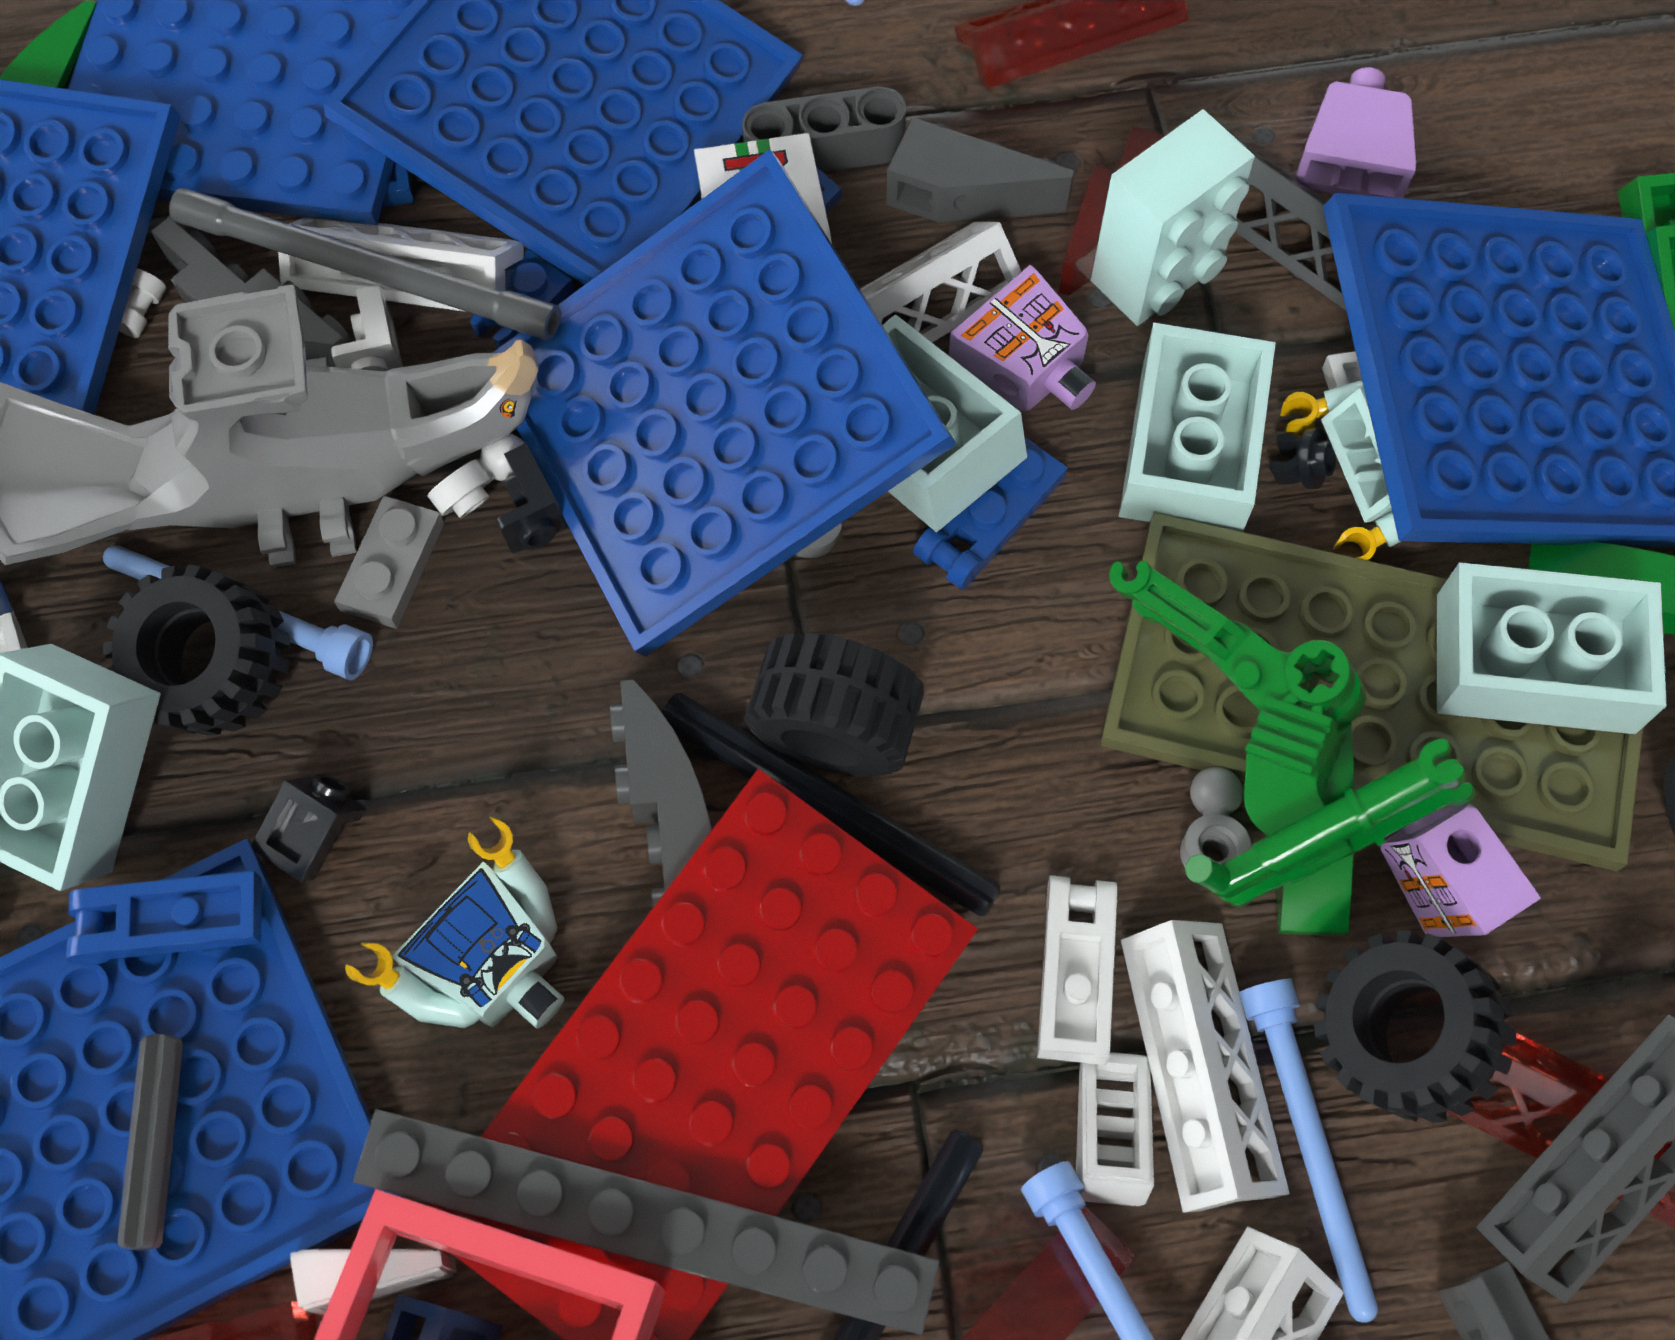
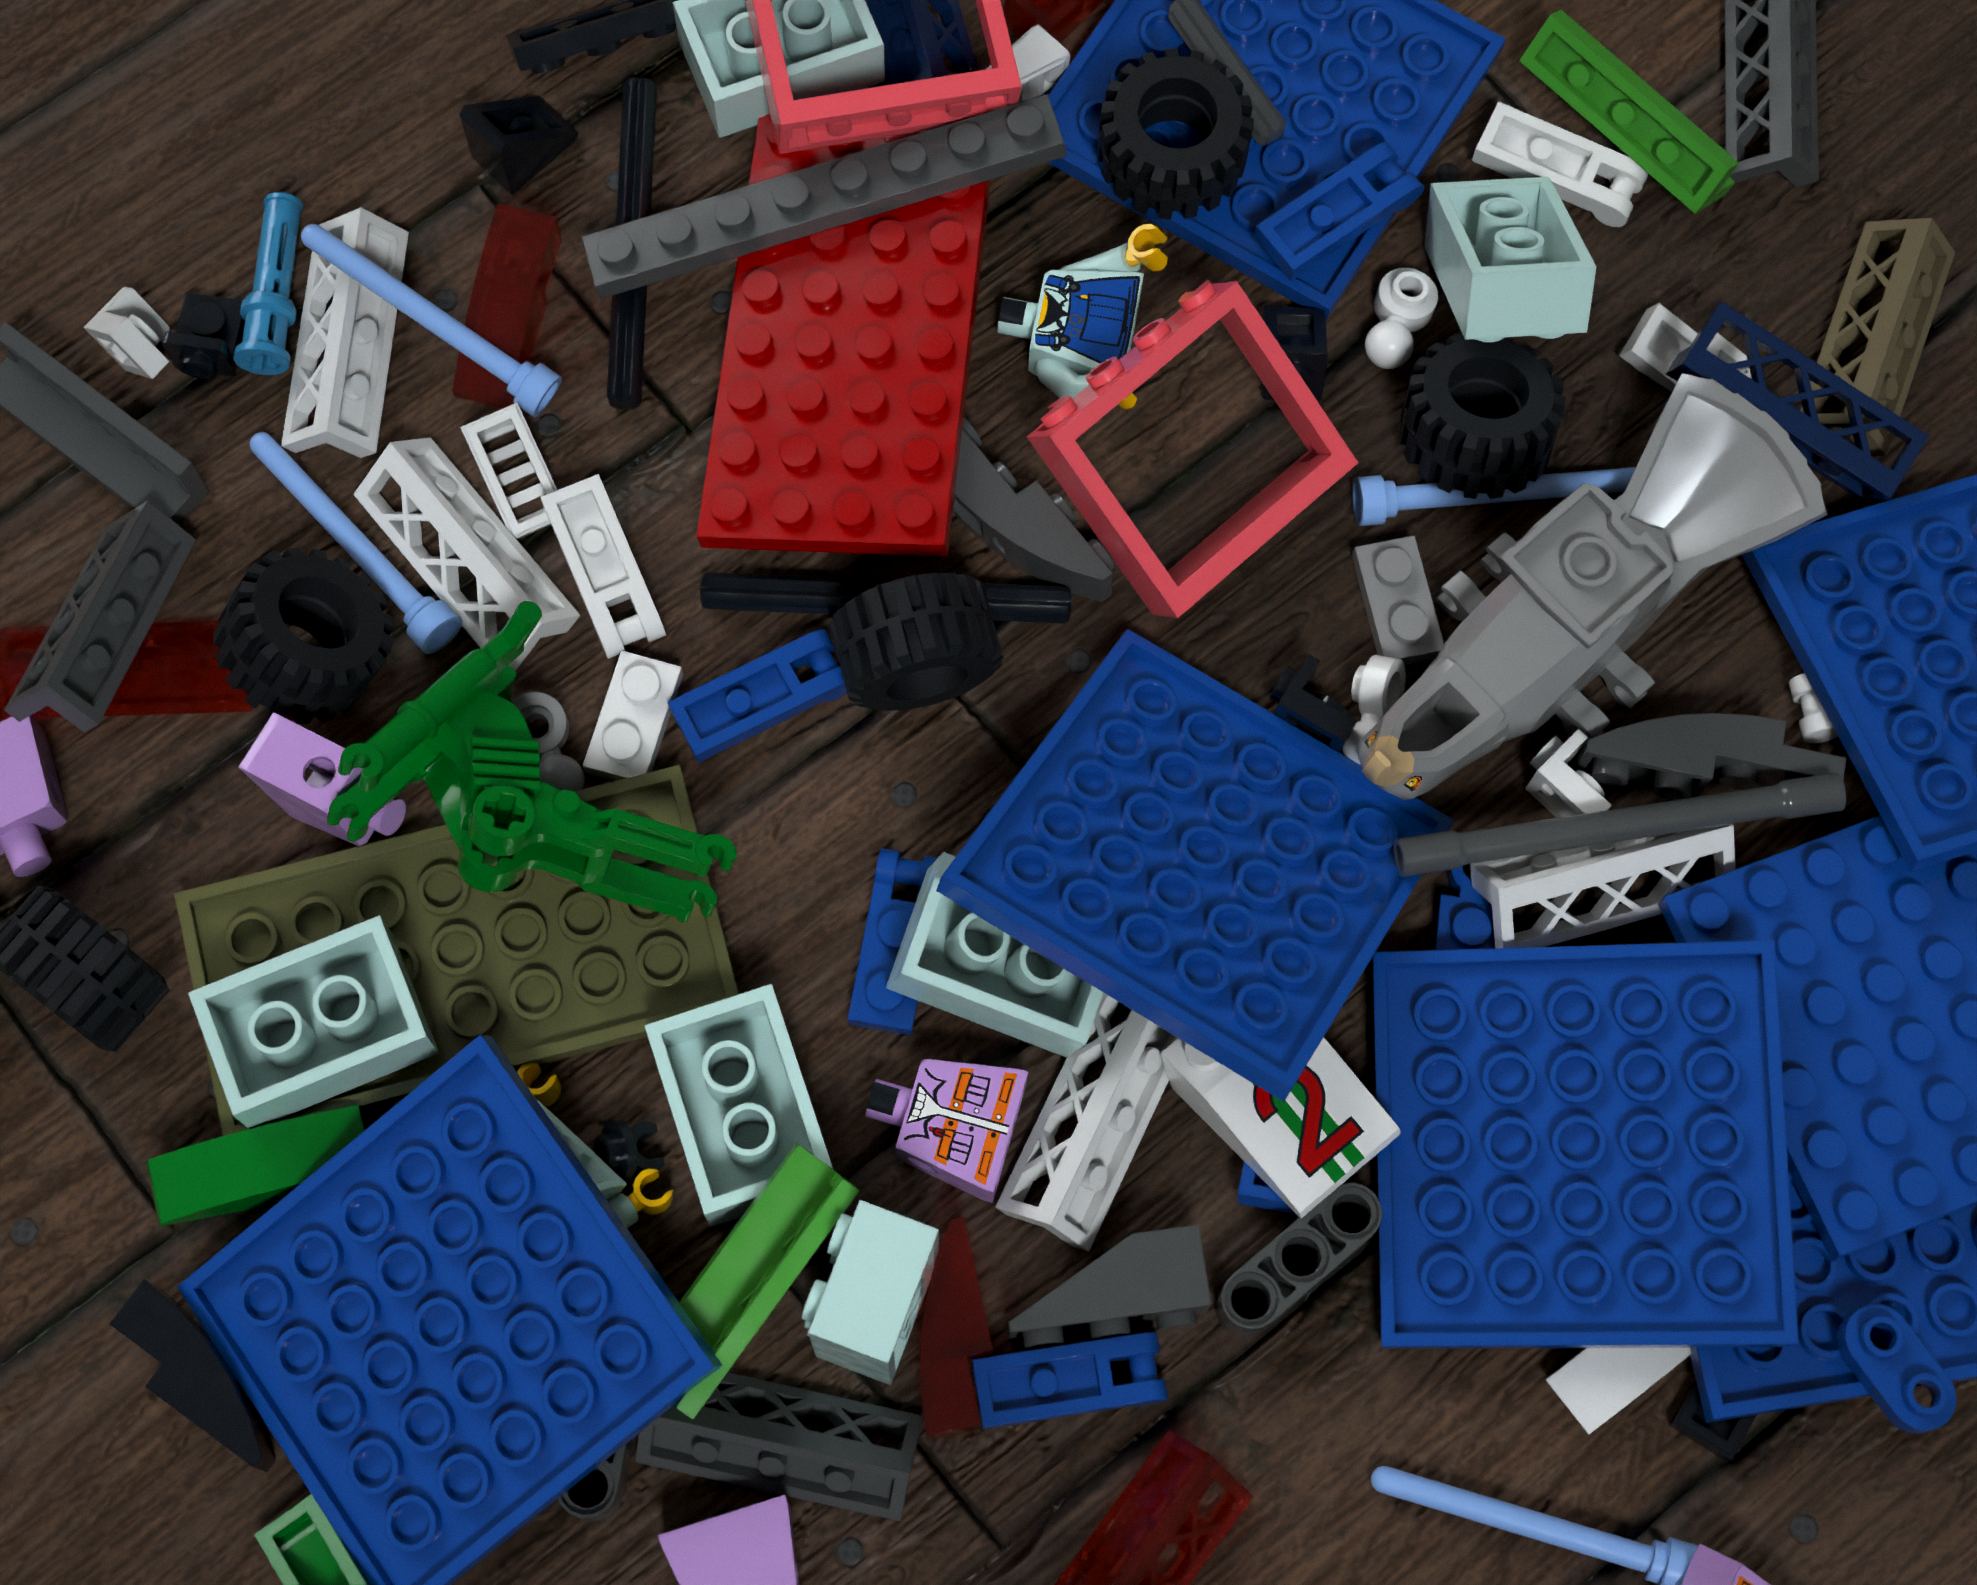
camera: 145 degrees right, 5 degrees up
(214, 1043) = (1181, 92): none -> black tyre
(216, 785) = (1391, 341): none -> white plate
(481, 808) = (1110, 382): none -> coral window
(995, 770) = (757, 695): none -> blue plate
(1047, 138) = (1067, 1380): none -> blue plate
(1119, 816) = (632, 717): none -> white plate
(1250, 290) = (762, 1260): none -> bright green fence

